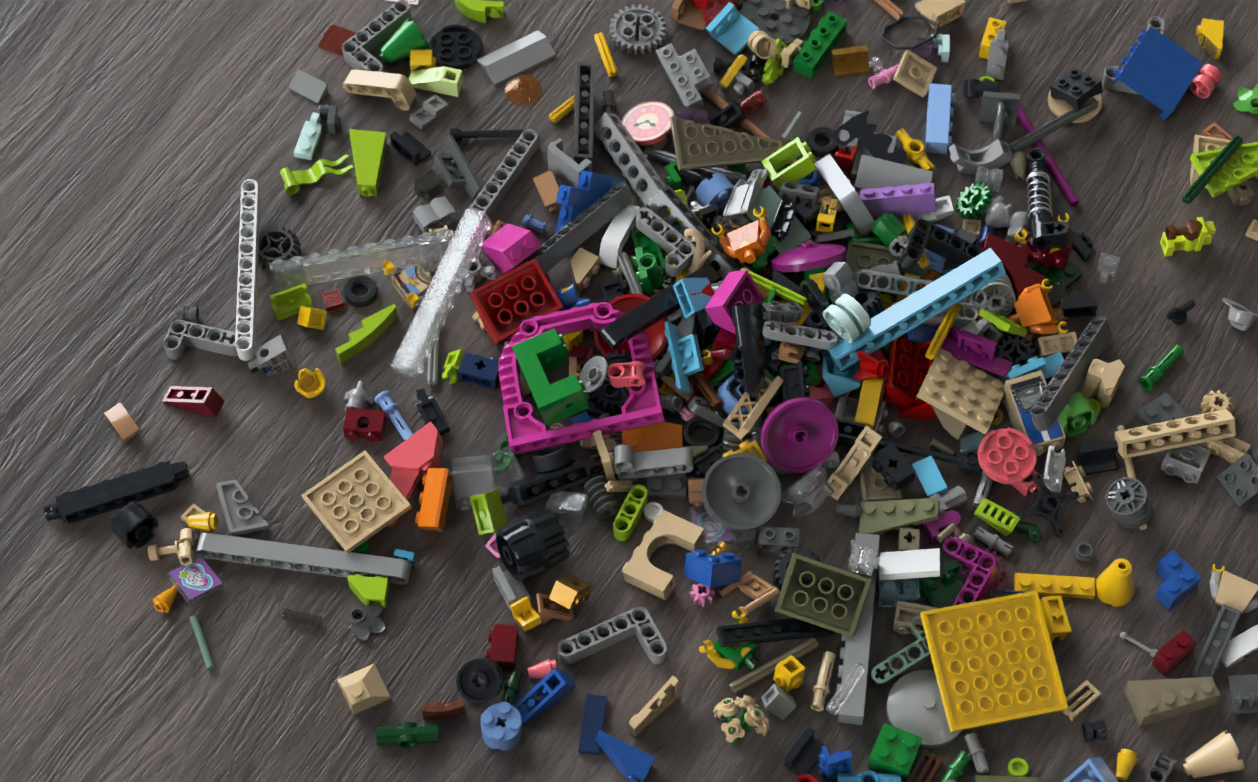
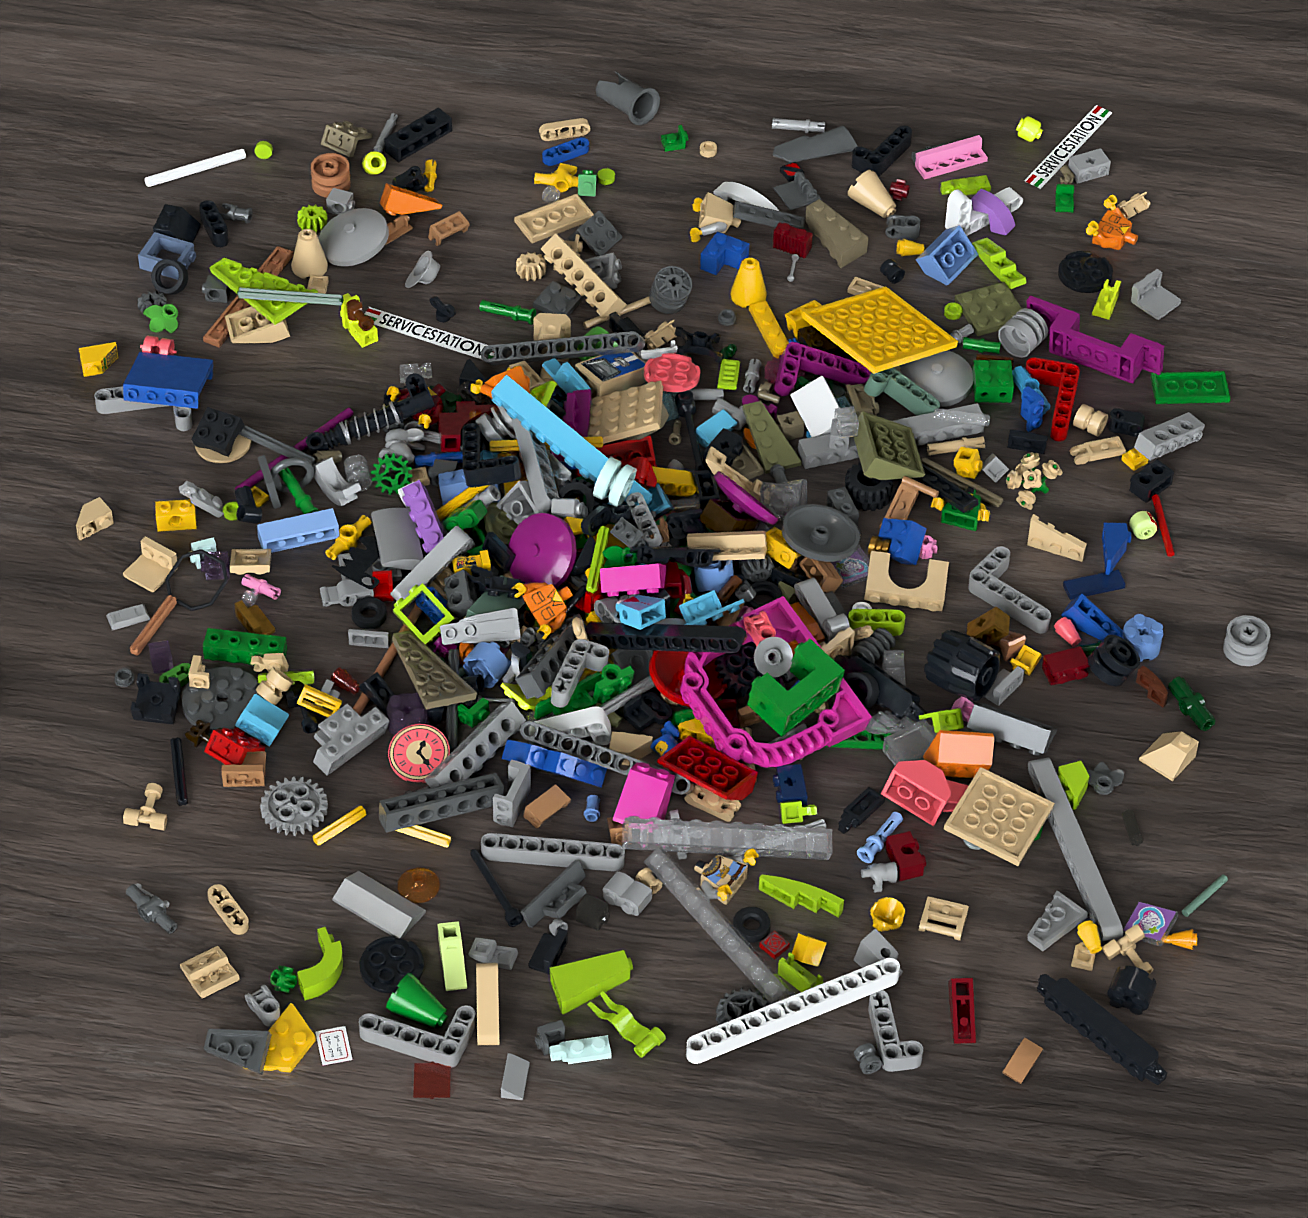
camera: 115 degrees left, 10 degrees down
(293, 431) = (944, 912): none -> tan plate
(405, 555) = (1025, 769): dark azure tile -> none
(422, 60) = (433, 979): yellow brick -> none
(428, 159) = (555, 924): none -> light grey hinge
(457, 570) = (1011, 728): none -> slope
(971, 130) = (303, 500): none -> green pin
(1158, 299) = (426, 333): none -> white sticker

